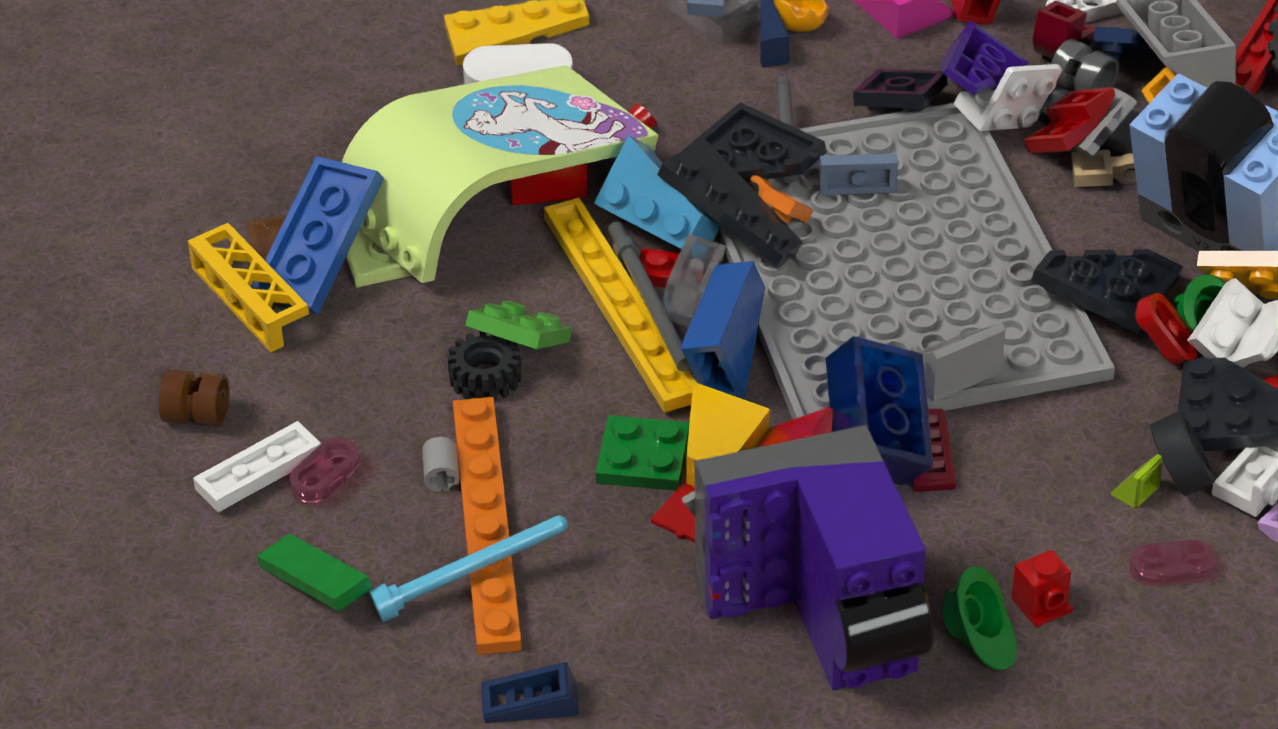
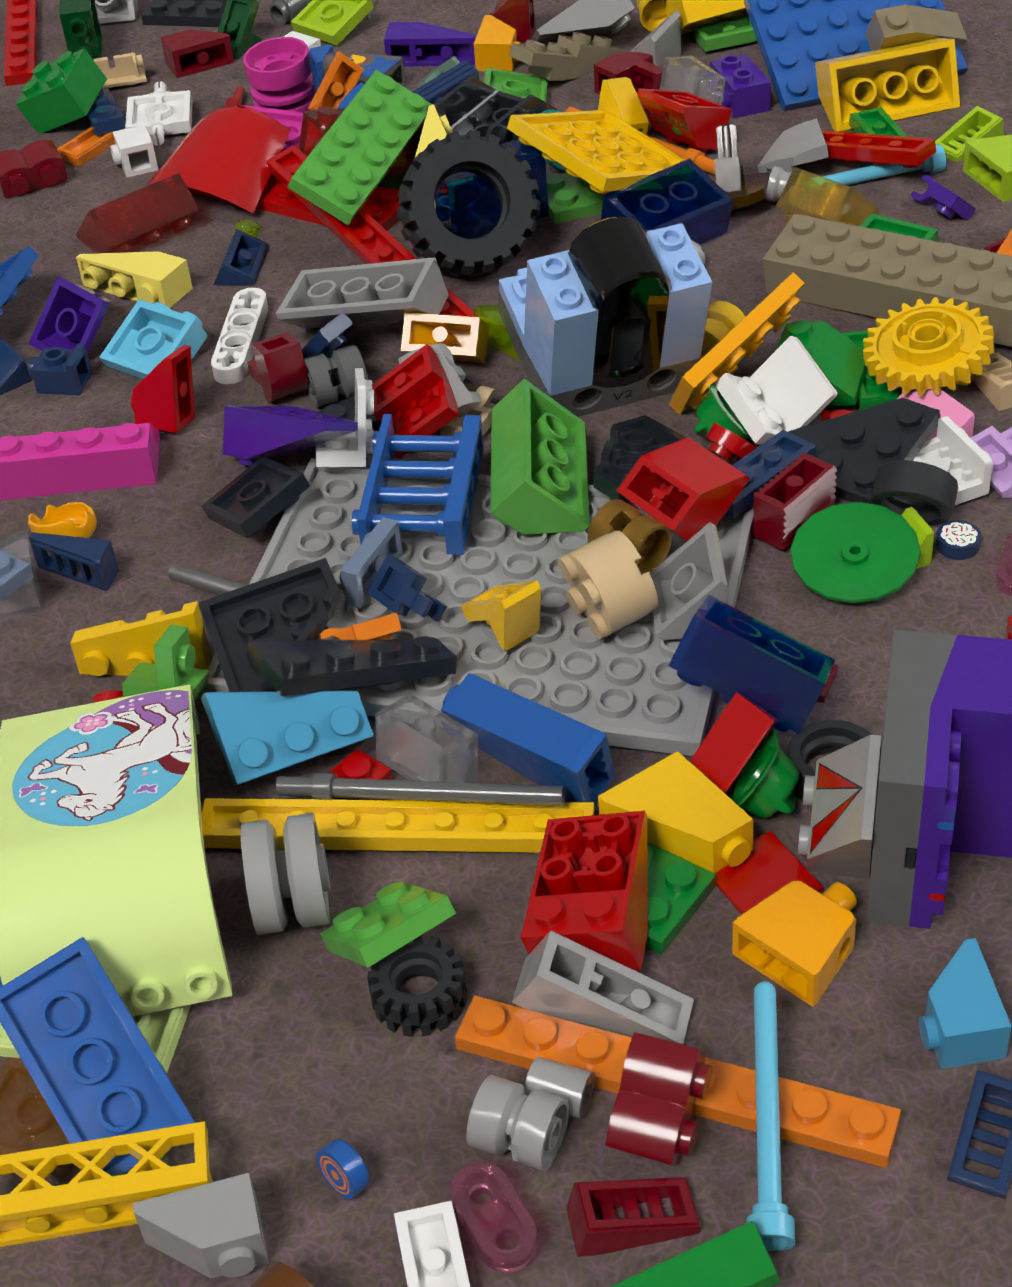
camera: 60 degrees left, 0 degrees up
(248, 348) = (207, 1227): none -> light grey slope
(320, 388) = (343, 1168): none -> blue tile
(359, 507) = (611, 1234): none -> dark red slope
(395, 450) = (530, 1122): none -> light grey wheel
(447, 505) = (658, 1099): none -> dark red brick
(522, 256) = (279, 874): none -> light grey wheel
(526, 455) = (599, 992): none -> light grey slope
(599, 412) = (593, 886): none -> red slope
(628, 646) = (965, 1012): none -> dark azure slope
(641, 541) = (798, 937): none -> light orange torso
(670, 120) = (171, 669): none -> bright green brick
(694, 98) = (120, 645): none -> yellow wing
(839, 202) = (400, 590): none -> dark blue plate
(848, 265) = (509, 610): none -> yellow slope
(910, 301) = (608, 584): none -> tan brick
(979, 188) = (455, 497): none -> blue fence
(984, 296) = (647, 535): none -> pearl gold wheel
(1053, 214) = (538, 464): none -> bright green slope
(1054, 304) = (683, 486): none -> red slope
(1091, 446) = (855, 552): none -> green piece
(1123, 386) = (792, 499): none -> dark red brick
(1137, 351) = (765, 463): none -> dark blue plate
(1173, 513) = (958, 539): none -> tile

